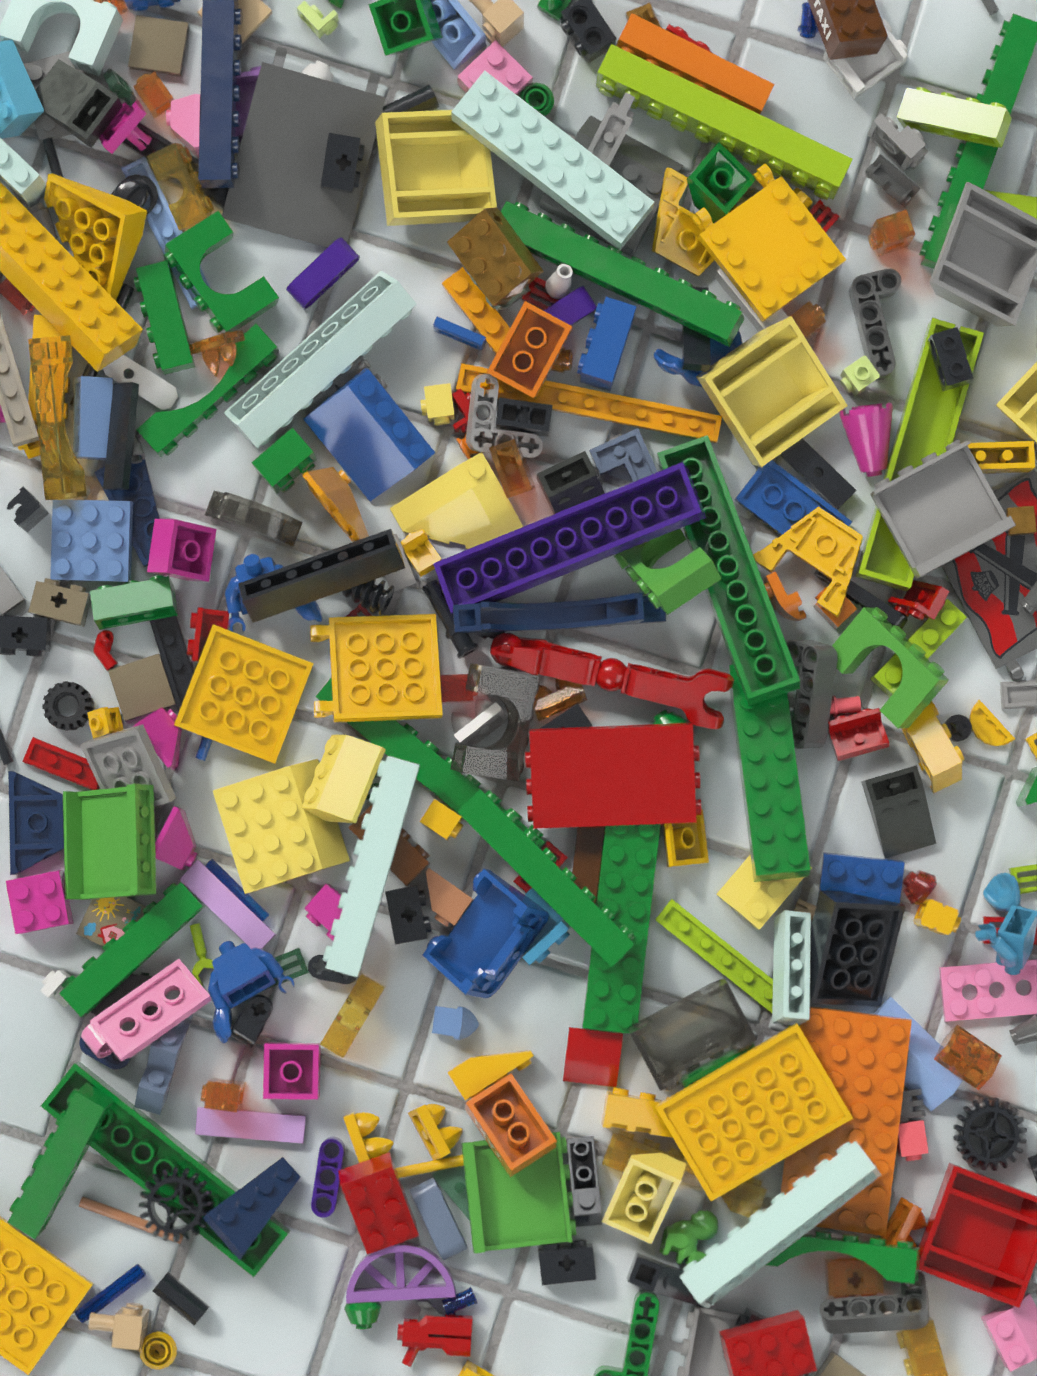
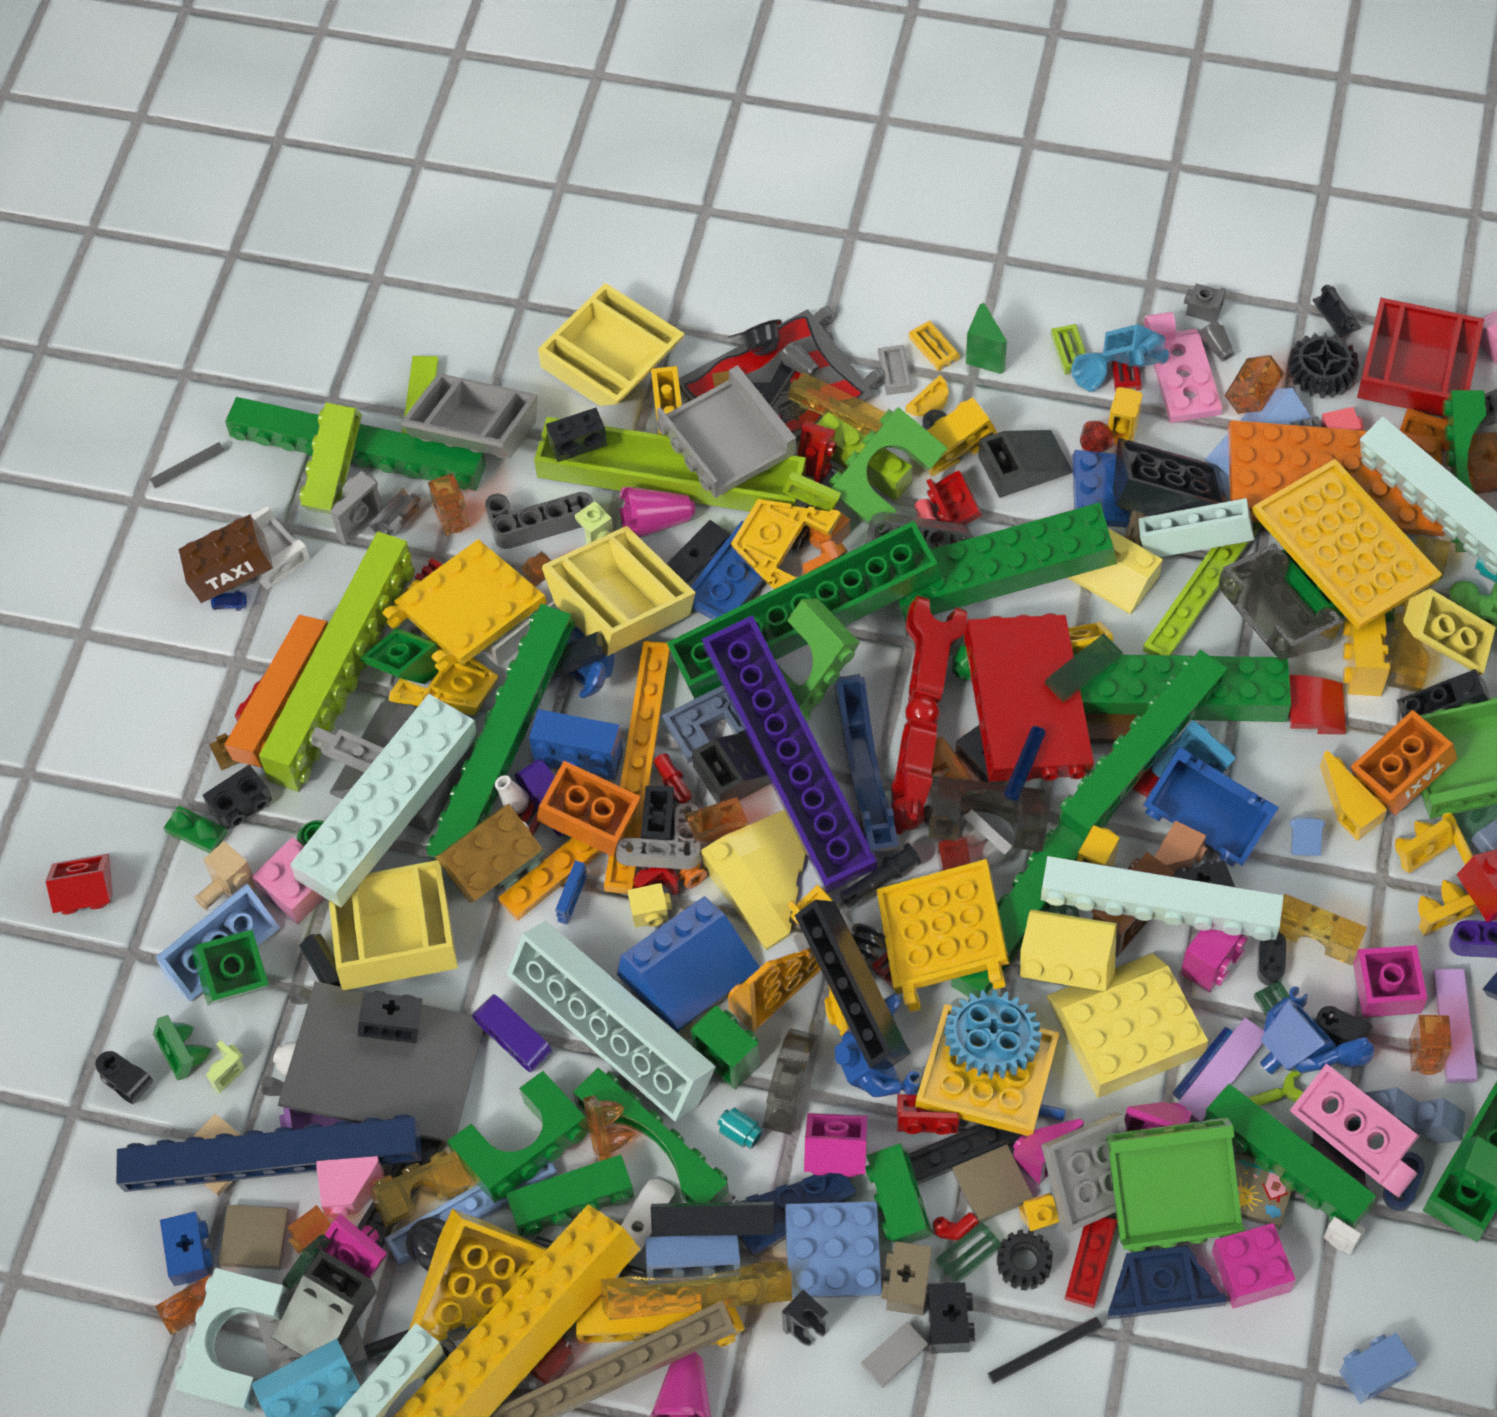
camera: 90 degrees left, 25 degrees down
(94, 677) = (977, 1261): none -> clear green tile
(213, 469) = (740, 1128): none -> teal brick
(246, 696) = (992, 1034): none -> dark azure gear
(531, 760) = (1024, 763): none -> clear blue axle
(570, 435) = (672, 778): none -> red axle
(633, 831) = (1083, 667): none -> clear green tile
(862, 588) = (811, 492): none -> lime tile
(981, 633) = (825, 398): none -> clear yellow panel

